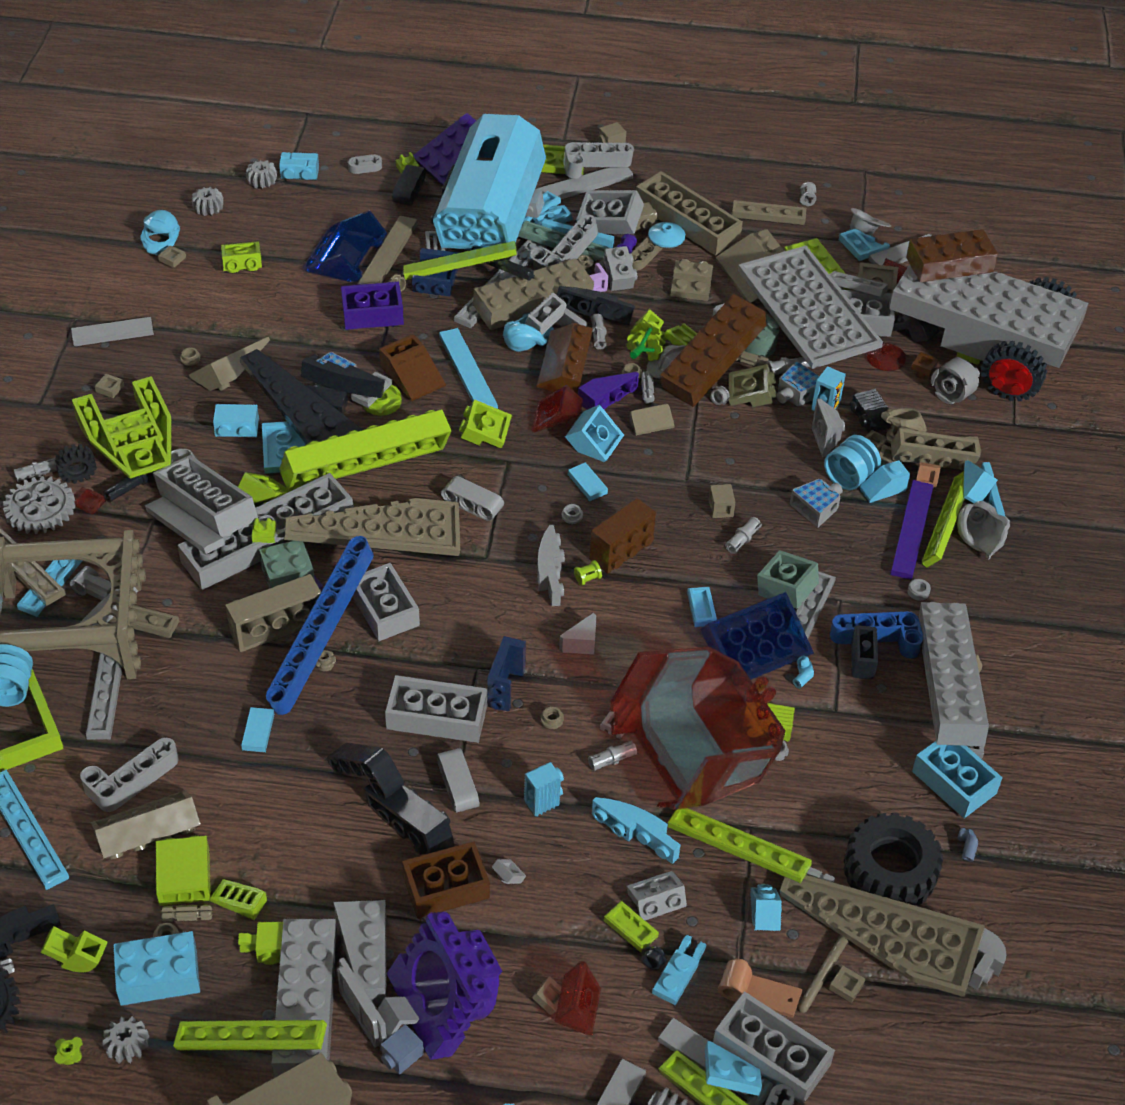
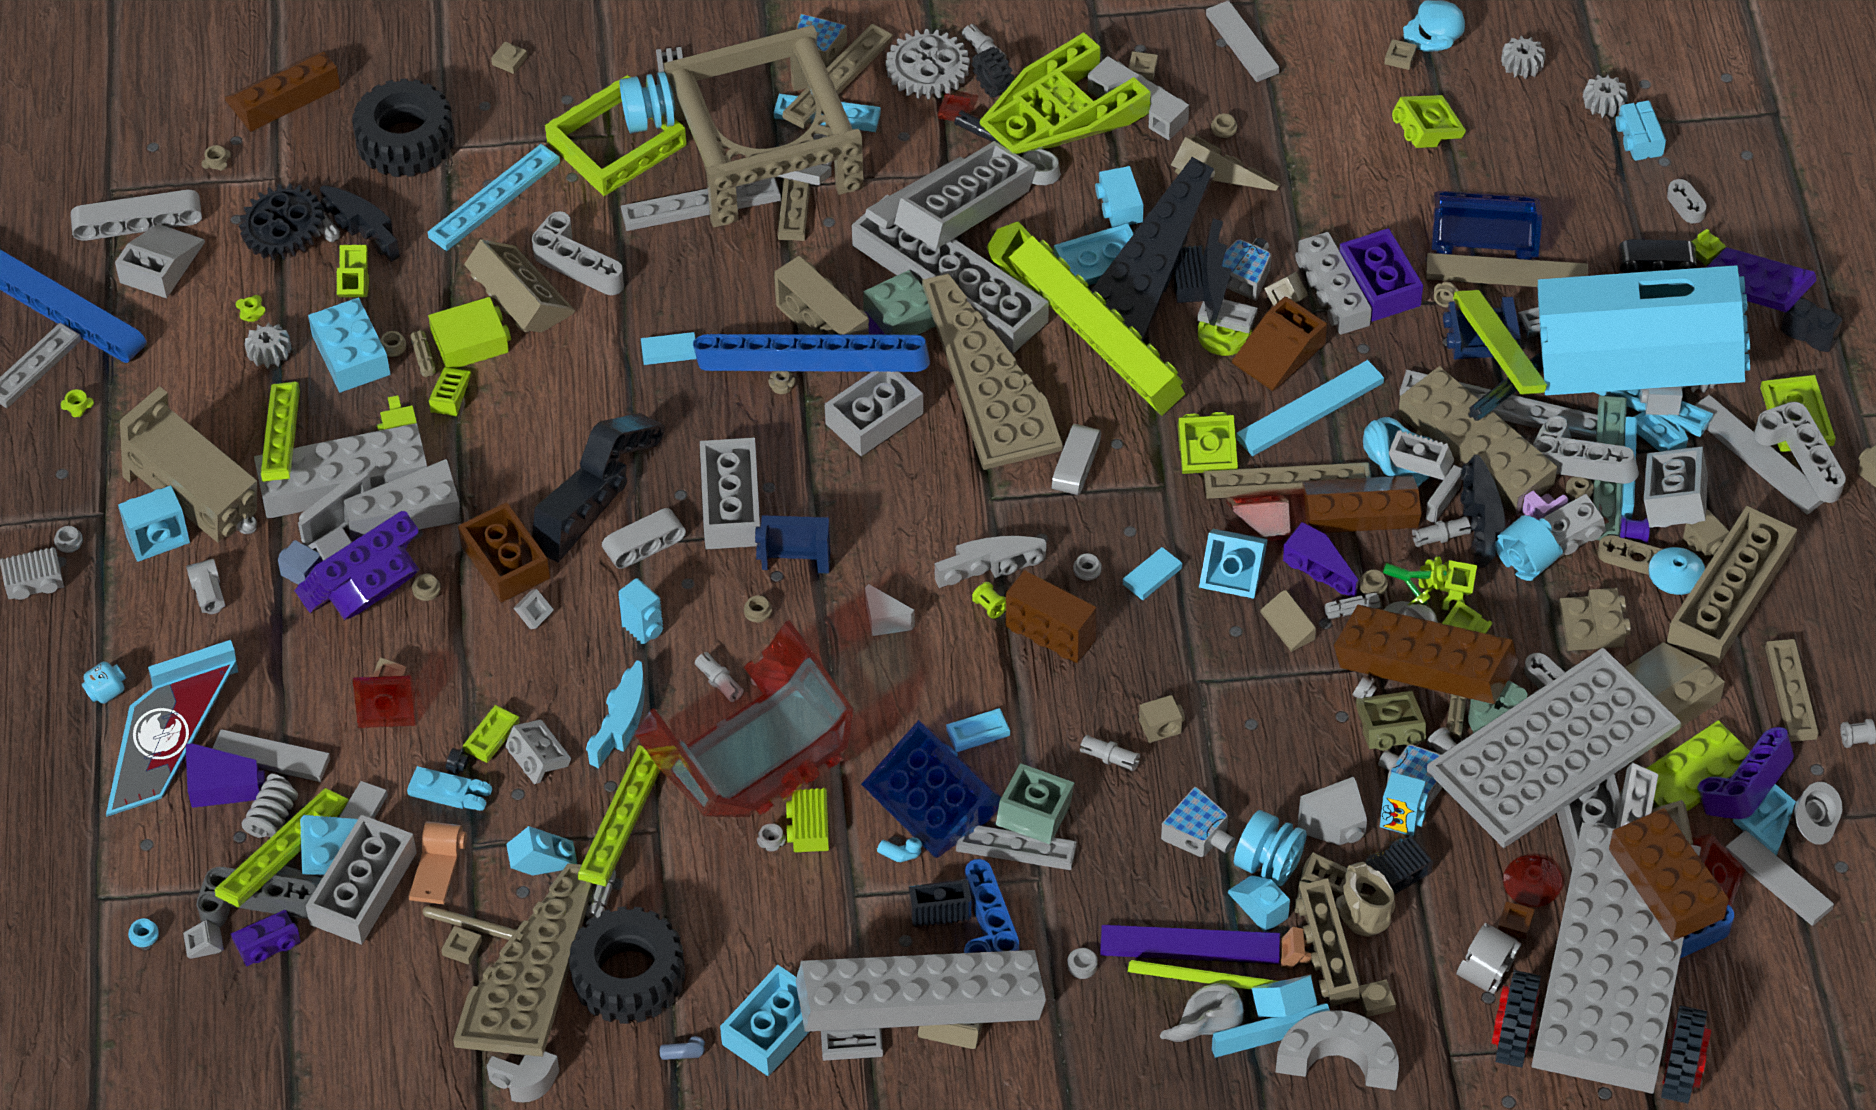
camera: 80 degrees right, 5 degrees up
(120, 399) = (1166, 111): none -> light grey arch
(264, 531) = (929, 262): lime tile -> none
(363, 356) = (1288, 286): none -> dark tan panel
(364, 331) = (1333, 283): none -> light grey brick
(525, 399) = (1276, 479): none -> dark tan tile
(634, 287) = (1528, 547): none -> medium azure brick
(847, 242) = (1751, 781): none -> dark purple beam
(1009, 456) = (1343, 1035): none -> light grey brick

